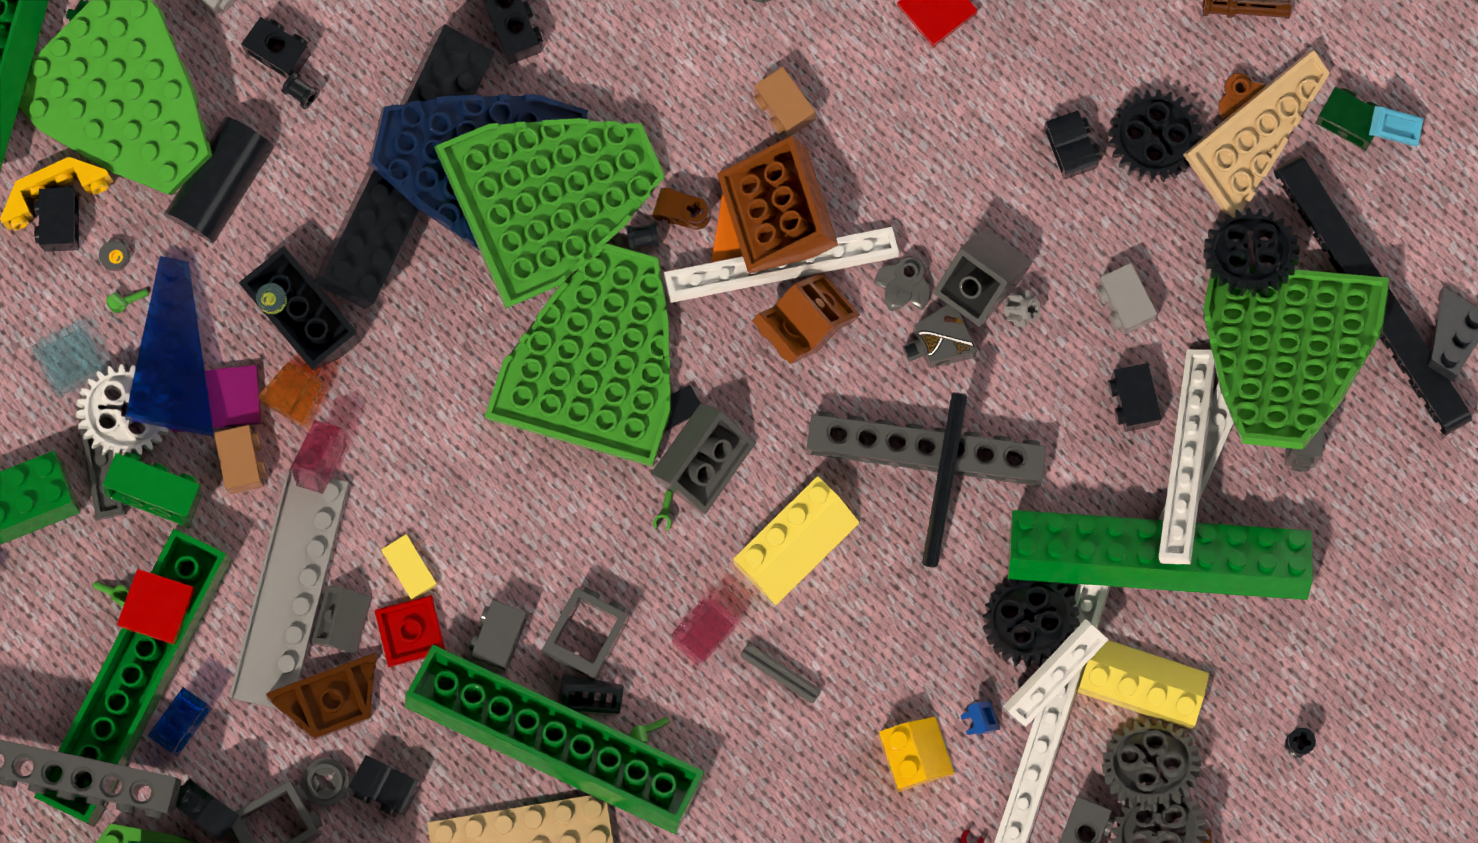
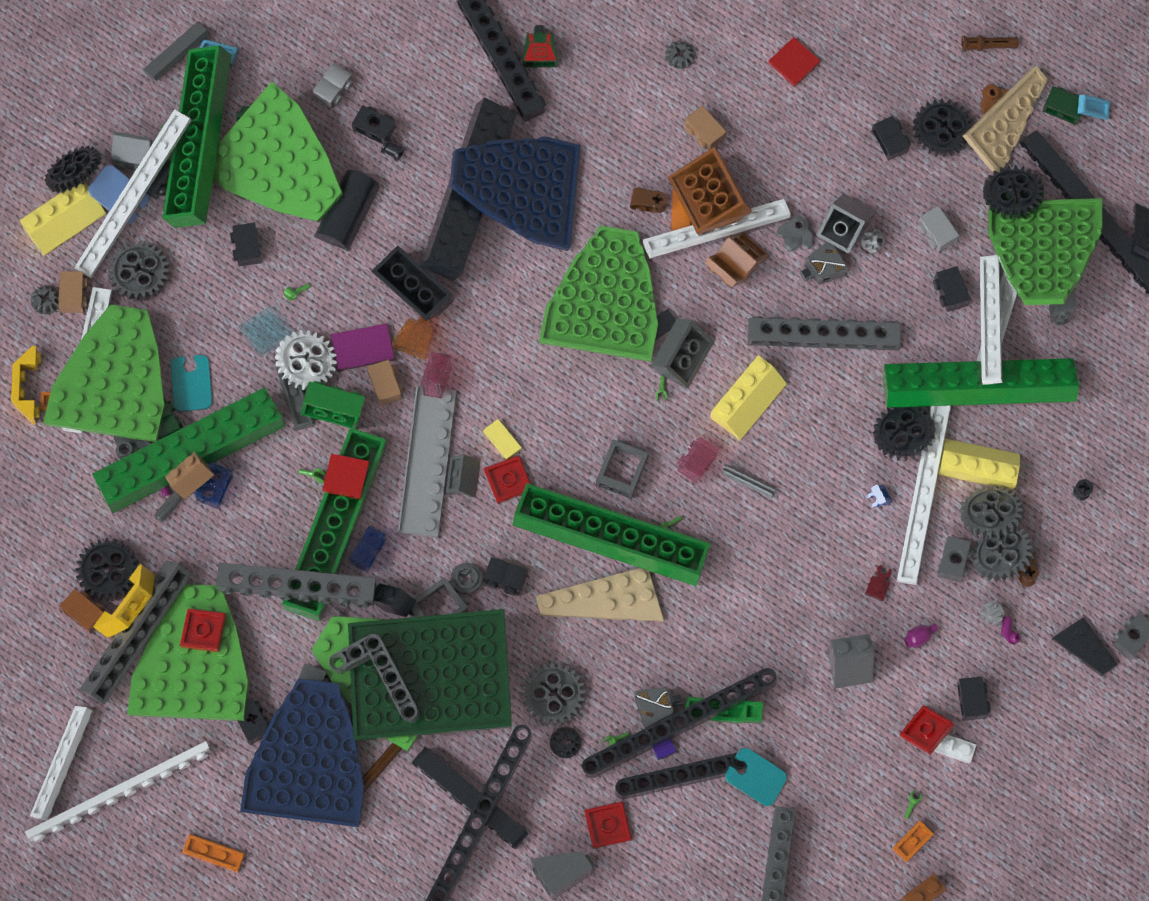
camera: 15 degrees left, 5 degrees down
(17, 210) = (264, 216): yellow slope -> none
(114, 255) = (285, 264): dark grey tile -> none
(170, 370) = (332, 329): clear blue wing -> none
(271, 298) = (394, 278): clear light blue tile -> none
(329, 699) = (462, 526): reddish brown wing -> none
(498, 635) = (566, 474): dark grey brick -> none
(547, 194) = (563, 197): bright green wing -> none
(588, 704) = (615, 499): black slope -> none
(642, 236) = (625, 219): black bush -> none
(915, 753) = (840, 521): yellow slope -> none
(944, 479) = (838, 353): black axle -> none
(1055, 672) = (924, 460): white plate -> none

